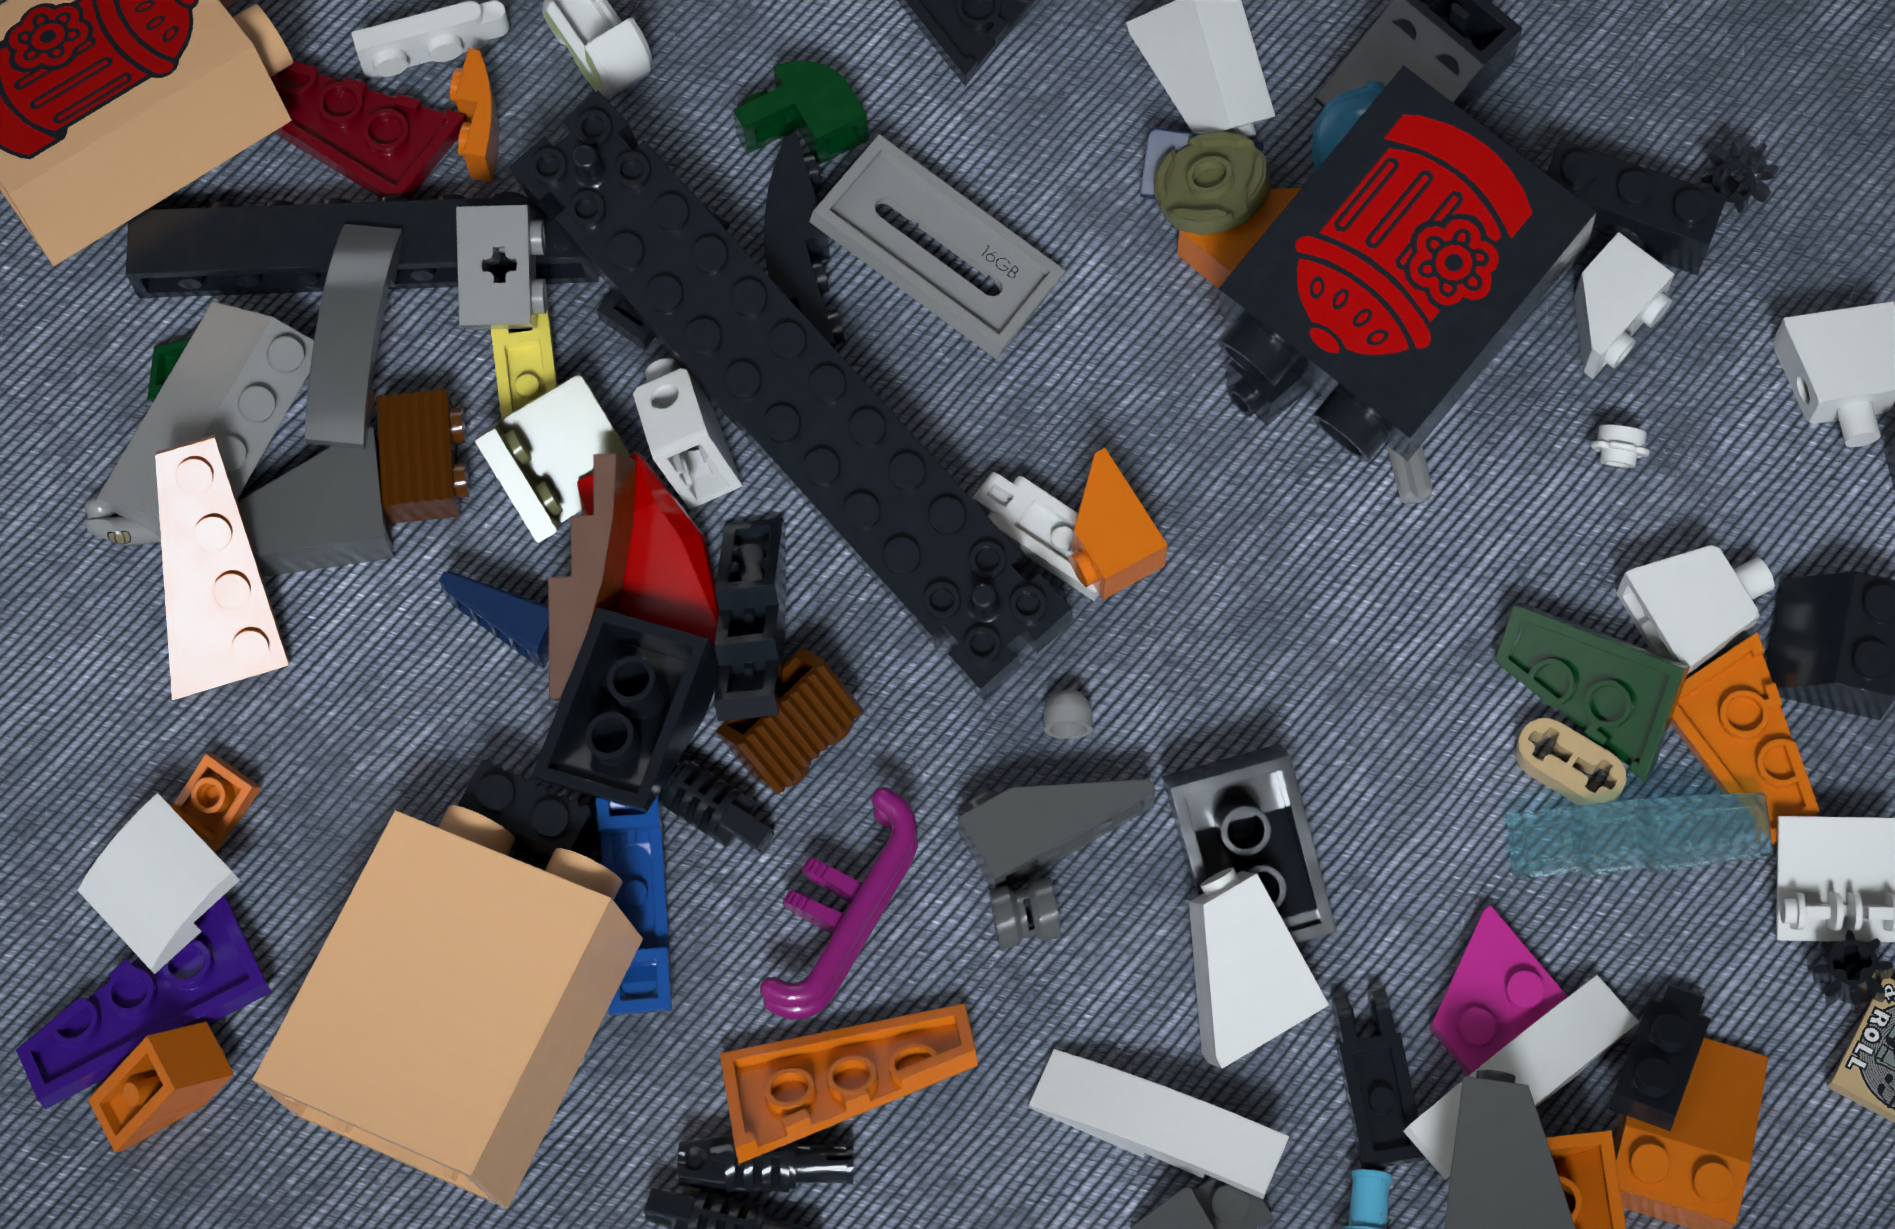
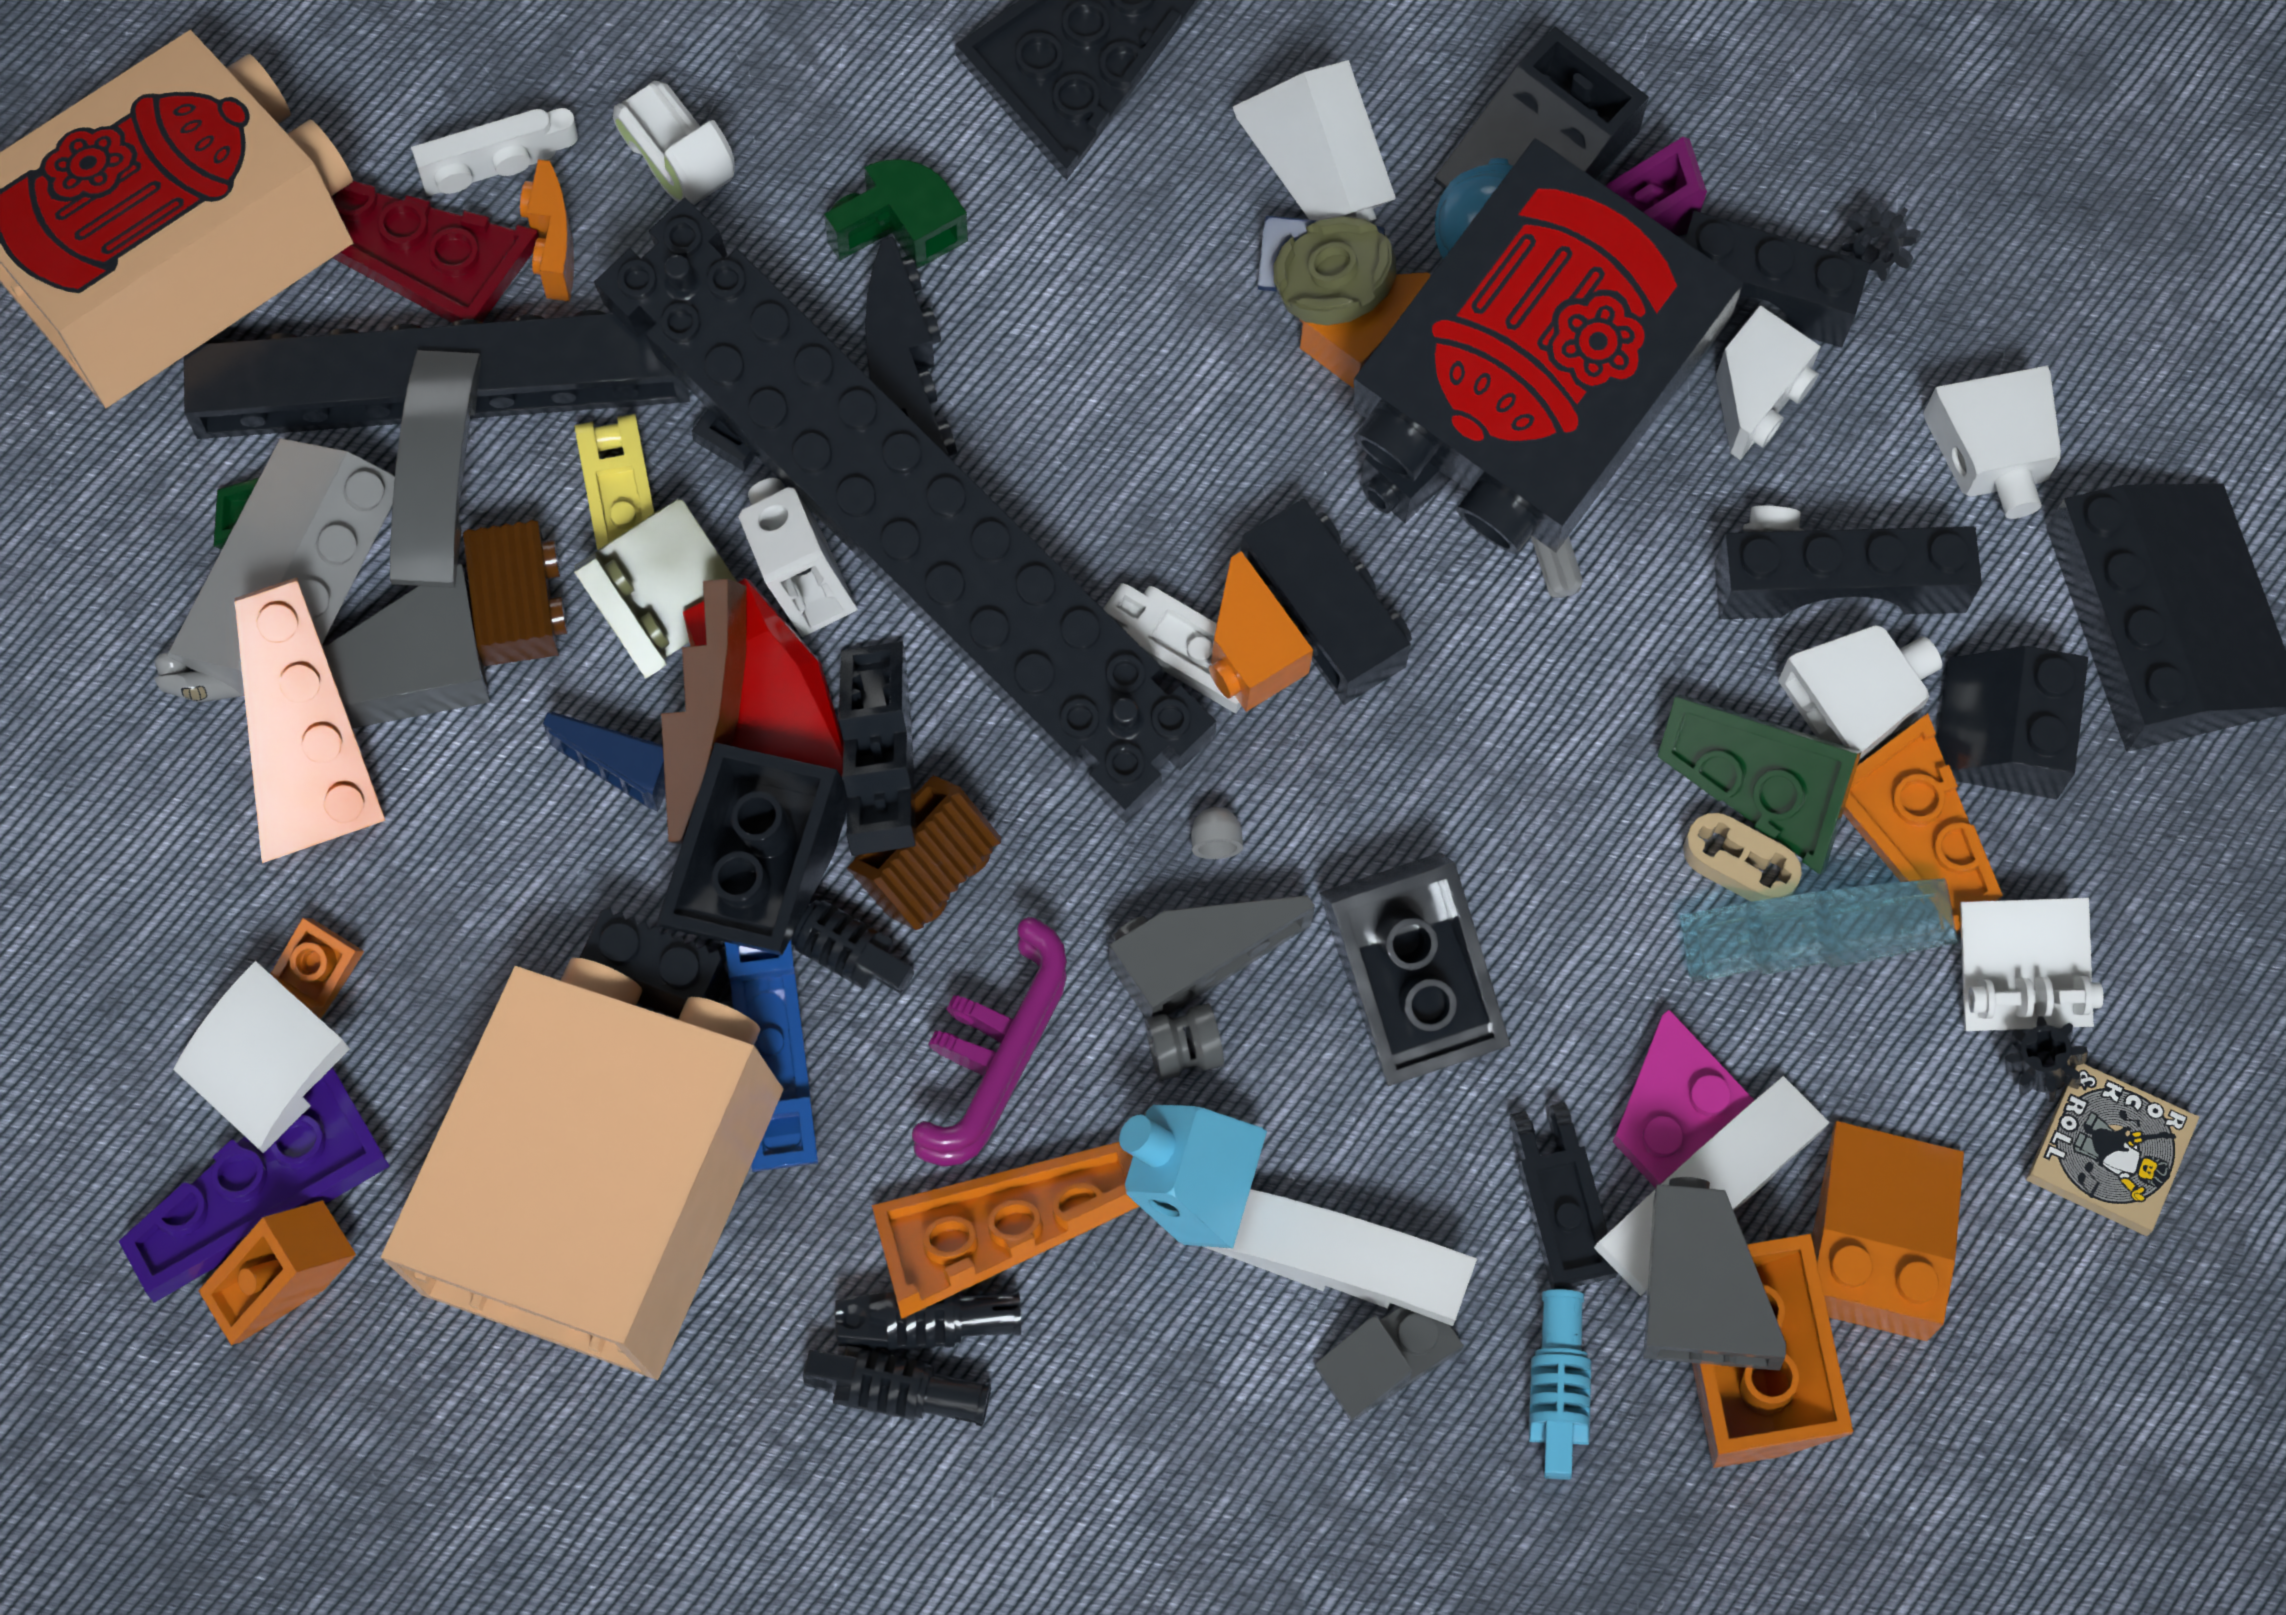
camera: 10 degrees left, 0 degrees up
(481, 239) = (567, 358): light grey brick -> none
(895, 179) = (1001, 280): light grey piece -> none
(1023, 1037) = (1192, 1171): none -> medium azure torso
(1187, 496) = (1328, 600): none -> black brick
(1245, 968) = (1420, 1087): white slope -> none
(1531, 116) = (1665, 186): none -> magenta slope
(1662, 1058) = (1856, 1158): black hinge -> none
(1747, 490) = (1783, 570): none -> black arch

